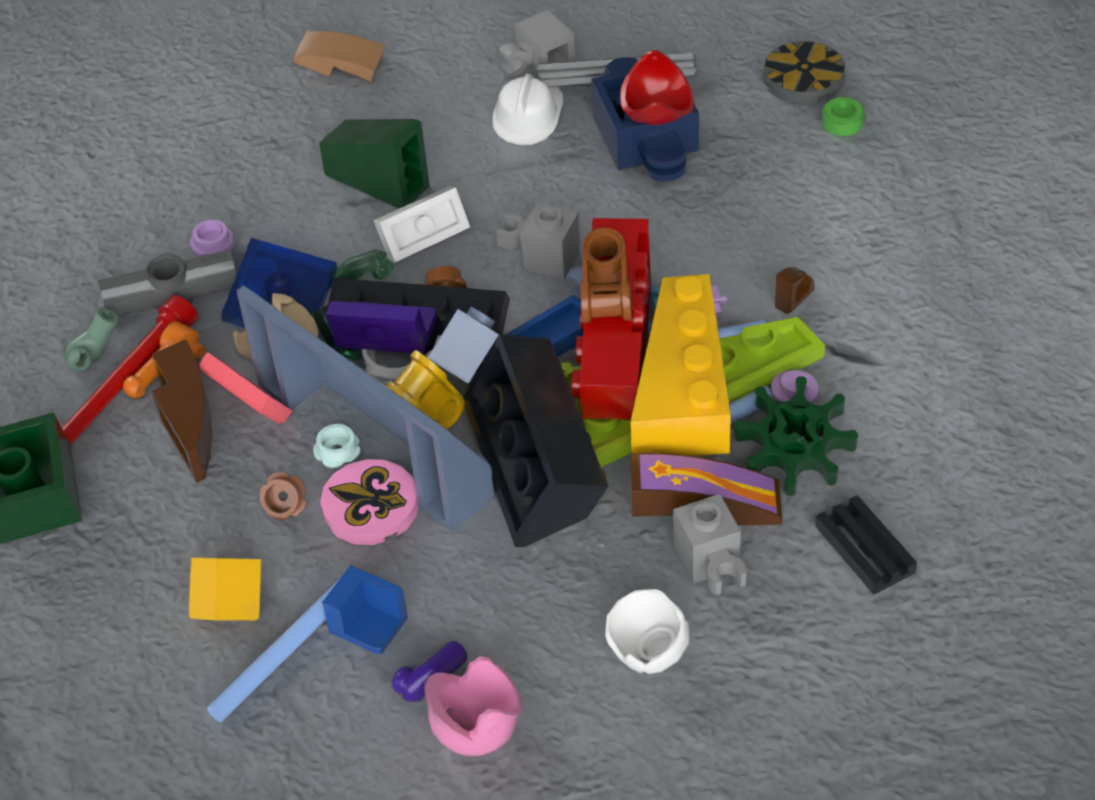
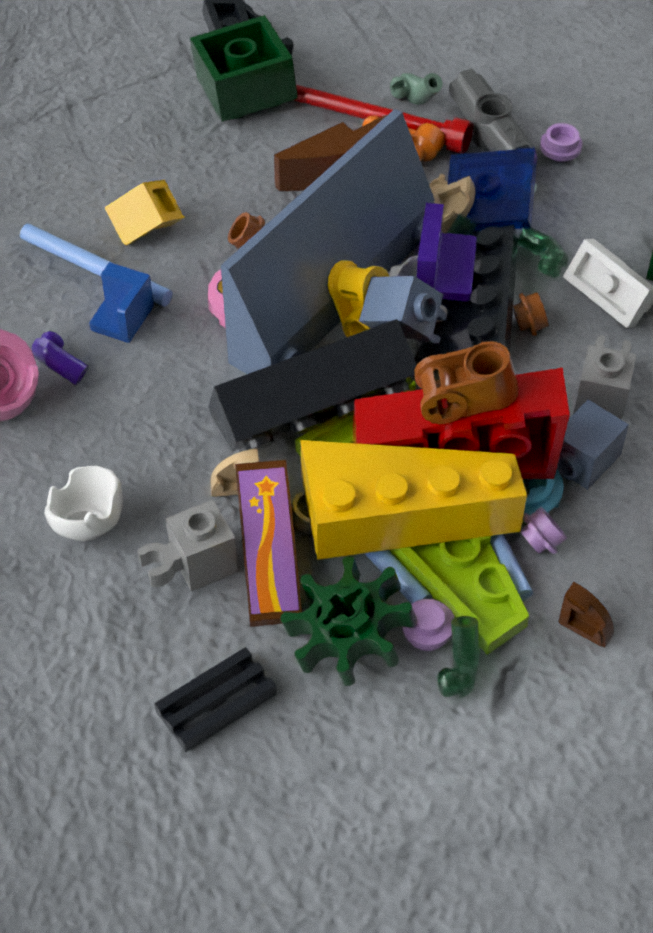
camera: 80 degrees right, 5 degrees up
(617, 515) = (224, 475): none -> tan tile
(834, 368) = (466, 654): none -> clear green arm

